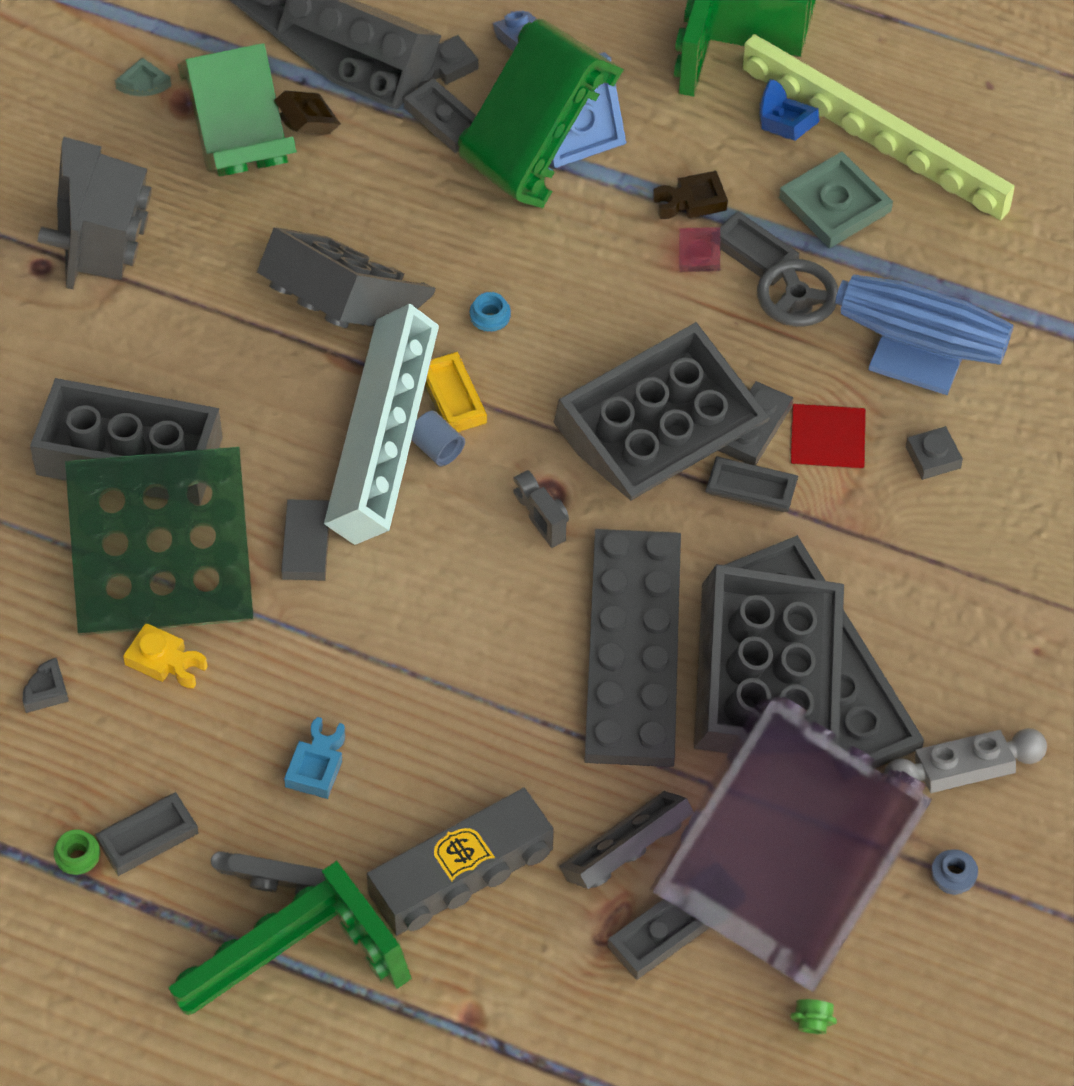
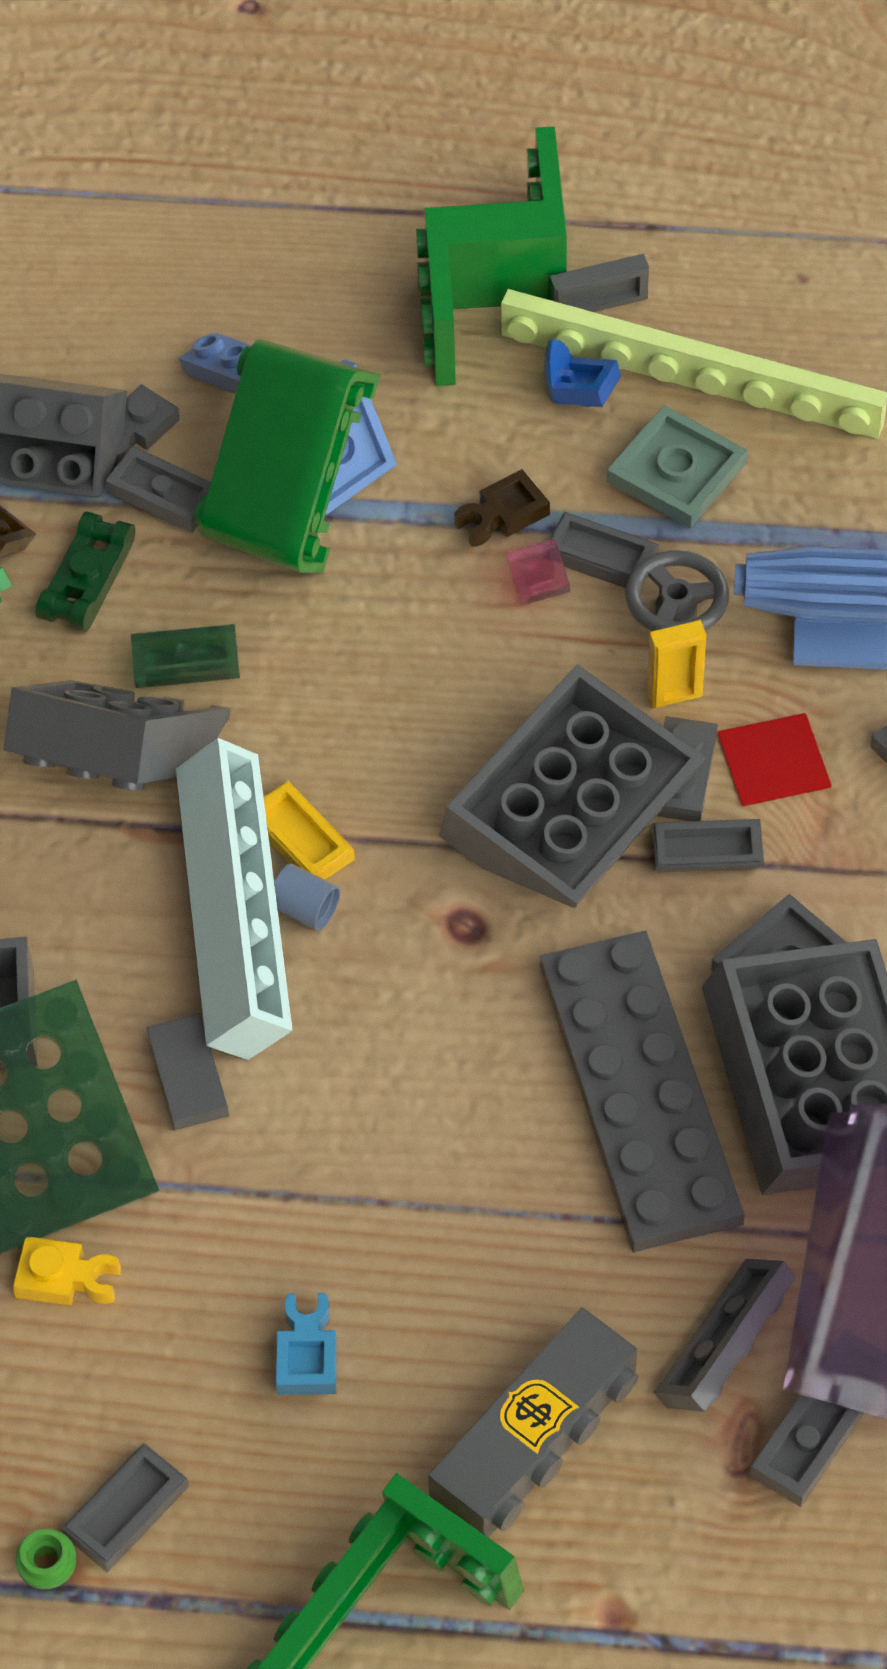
camera: 15 degrees left, 0 degrees up
(266, 873) = (300, 1513): dark grey hinge -> none
(367, 161) = (86, 572): none -> dark green plate
(415, 241) = (185, 656): none -> clear green plate
(490, 304) = (309, 708): dark azure plate -> none
(545, 513) = (470, 951): dark grey plate -> none
(774, 343) = (676, 664): none -> yellow tile
(829, 50) = (602, 284): none -> dark grey tile

